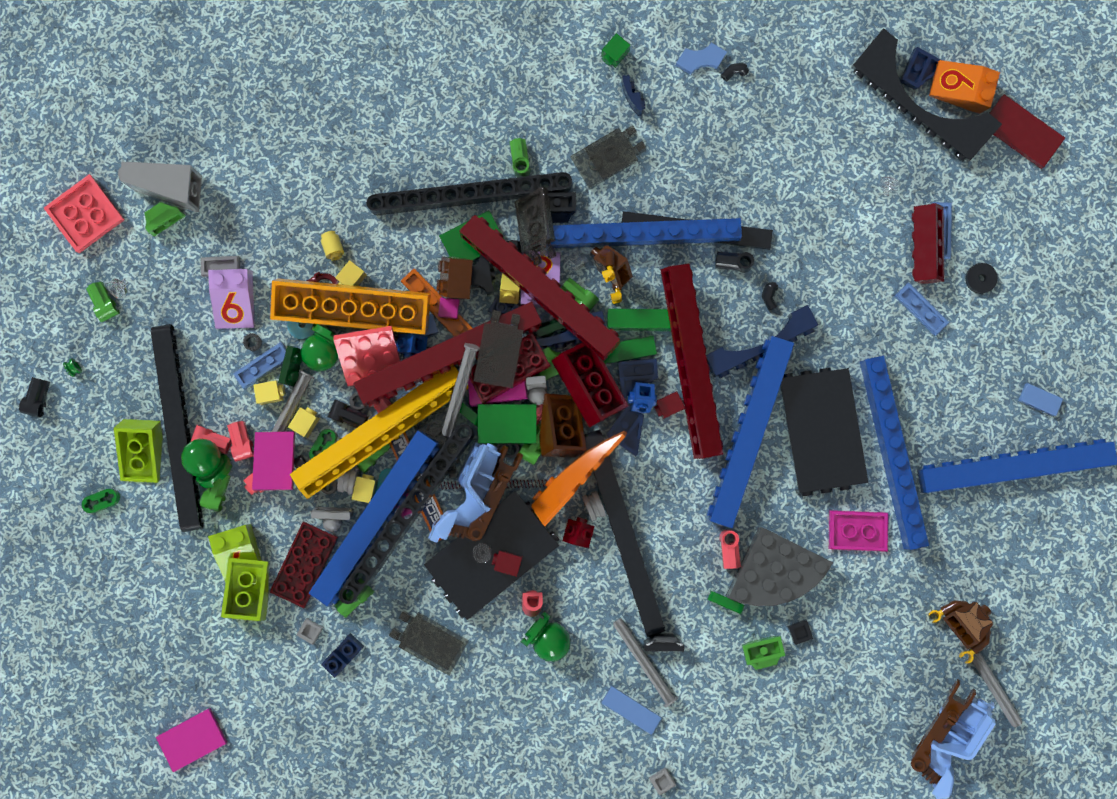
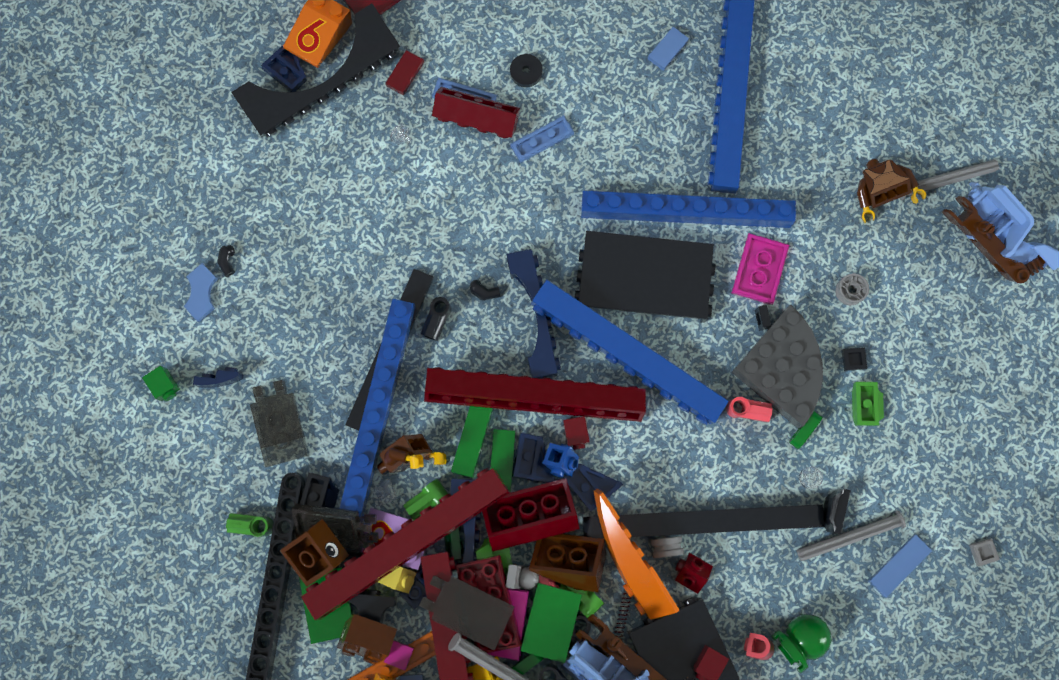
camera: 75 degrees left, 5 degrees down
(512, 215) = (314, 553): none -> reddish brown brick
(688, 619) = (815, 475): none -> clear tile
(814, 542) = (763, 317): none -> black tile
(868, 621) = (858, 283): none -> light grey wheel
(947, 172) = (404, 72): none -> dark red tile

